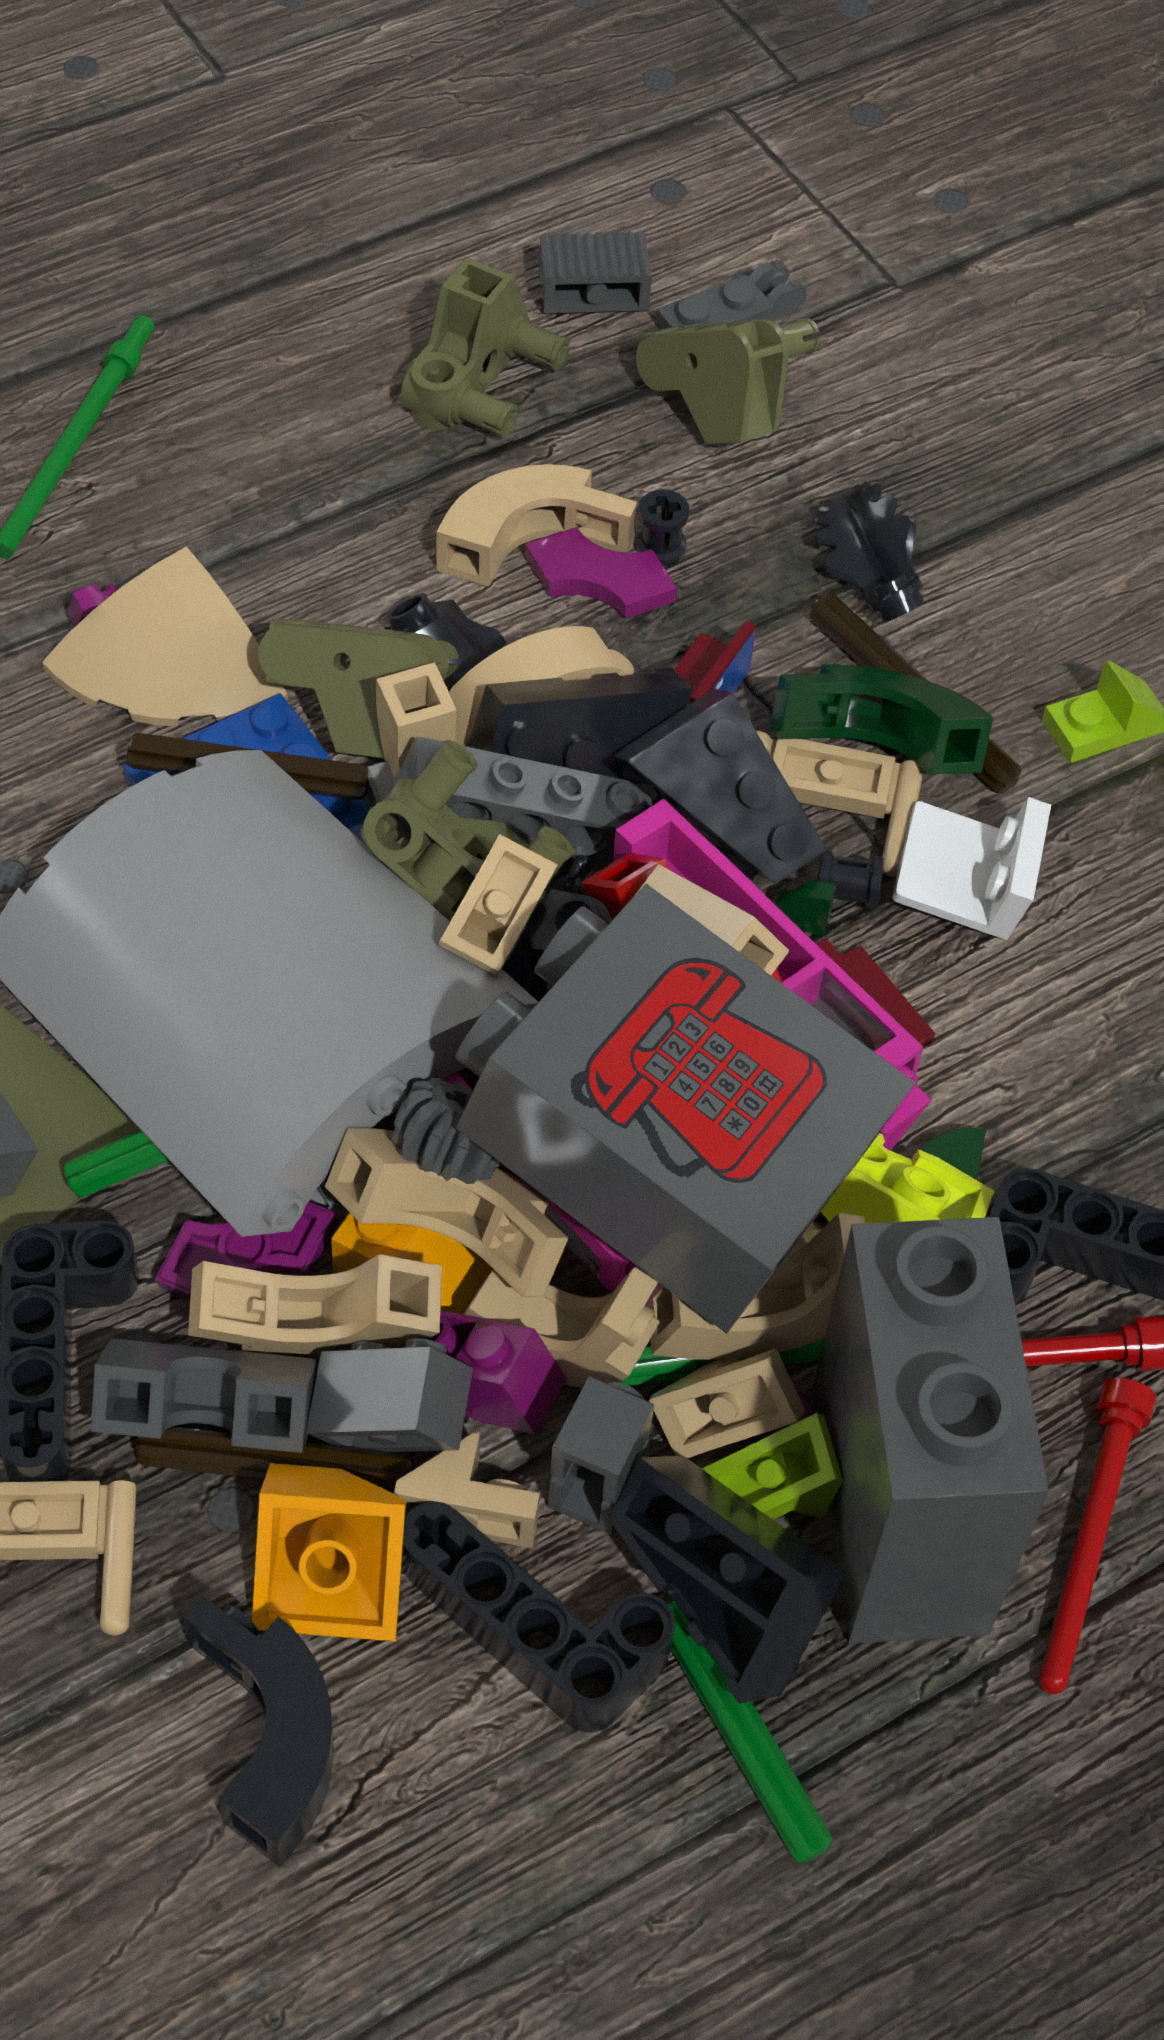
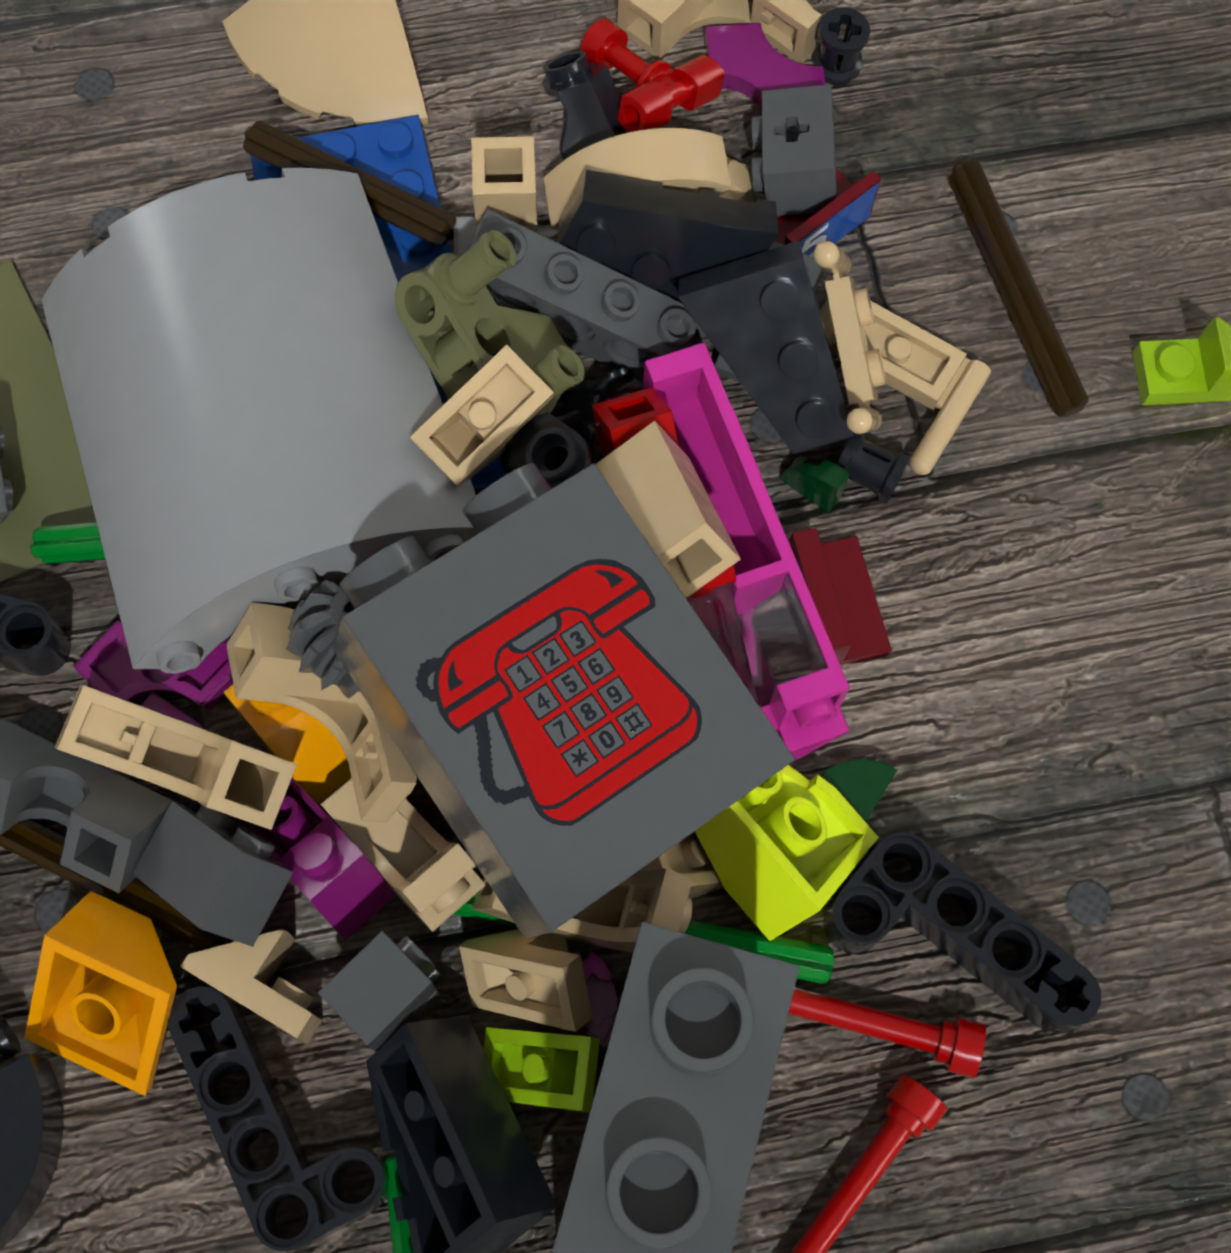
camera: 20 degrees right, 15 degrees up
(315, 658) = (478, 101): olive piece -> none
(506, 608) = (657, 86): none -> red bar
(663, 622) = (796, 148): none -> dark grey brick
(783, 745) = (850, 313): none -> tan plate
(871, 548) = (1033, 126): black plant -> none
(888, 708) = (981, 300): dark green arch -> none
(971, 868) = (994, 490): white bracket -> none

